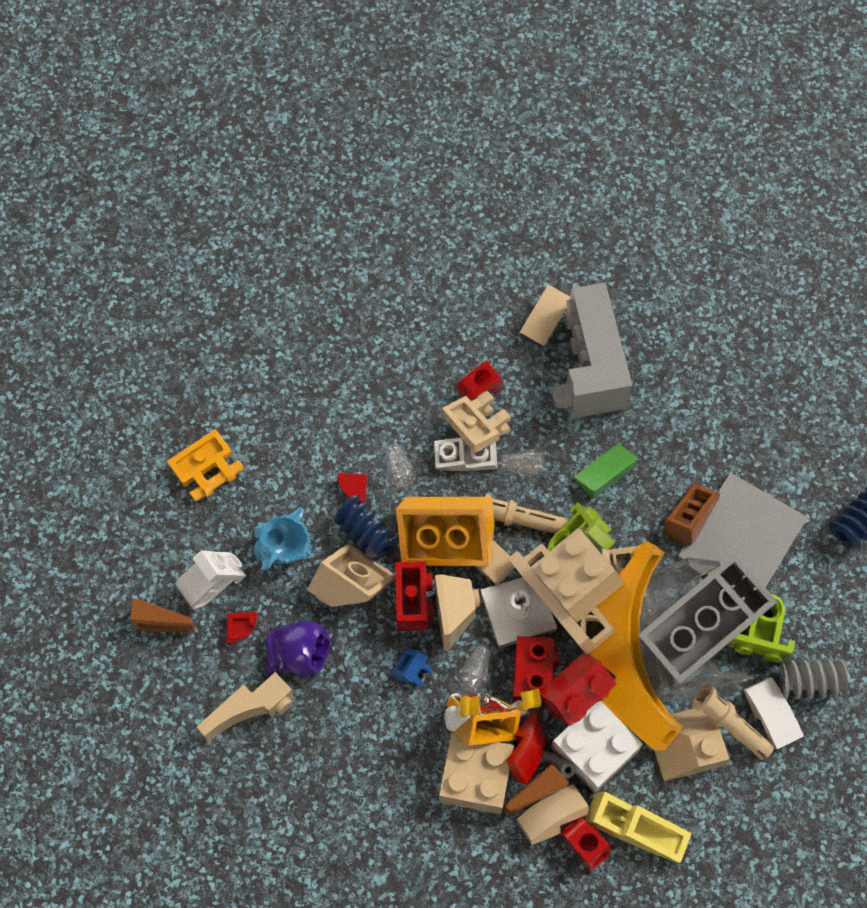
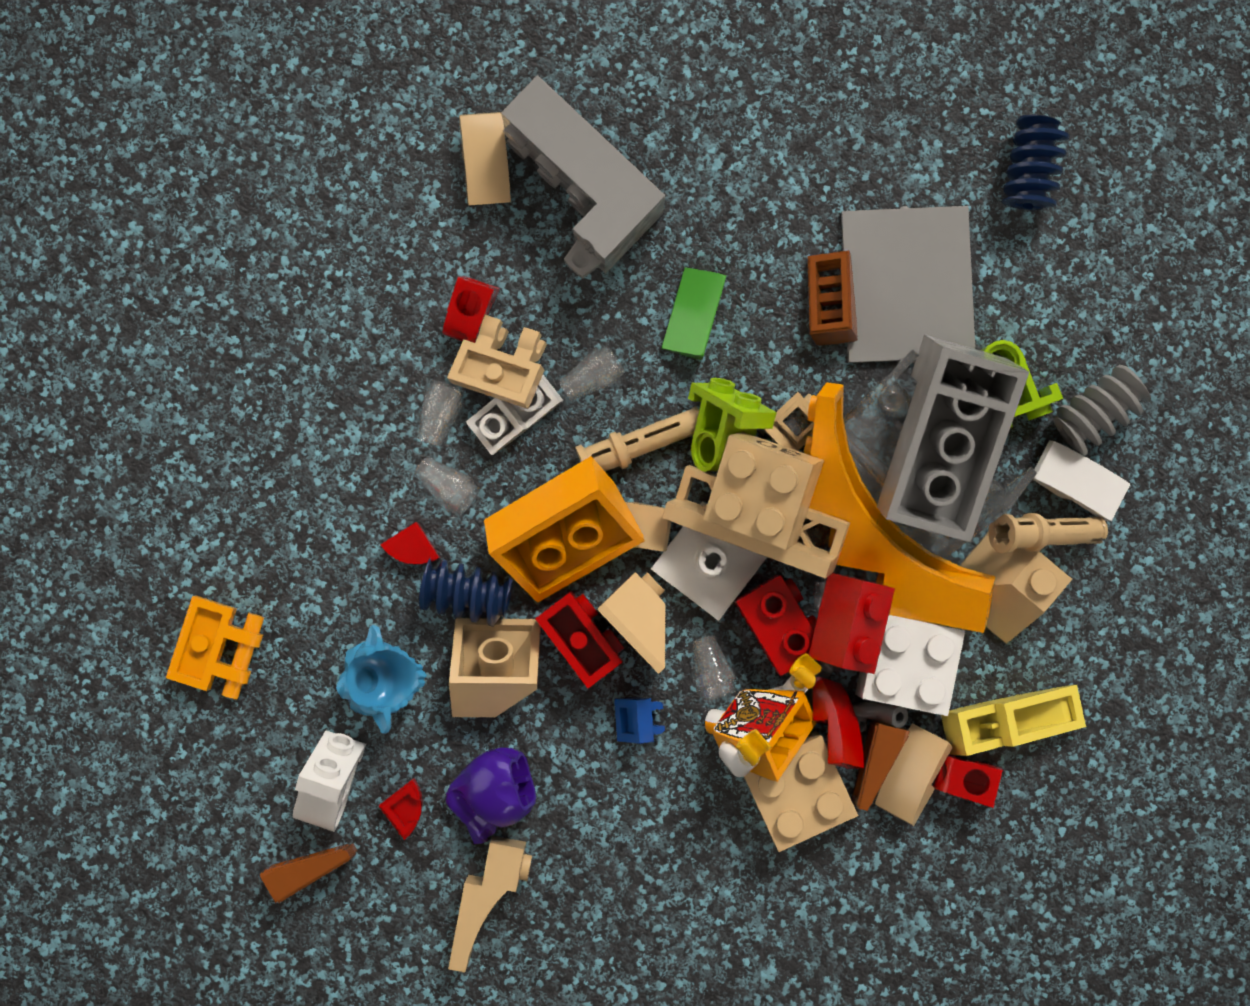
camera: 35 degrees left, 20 degrees up
(424, 425) = (439, 411): none -> clear cone

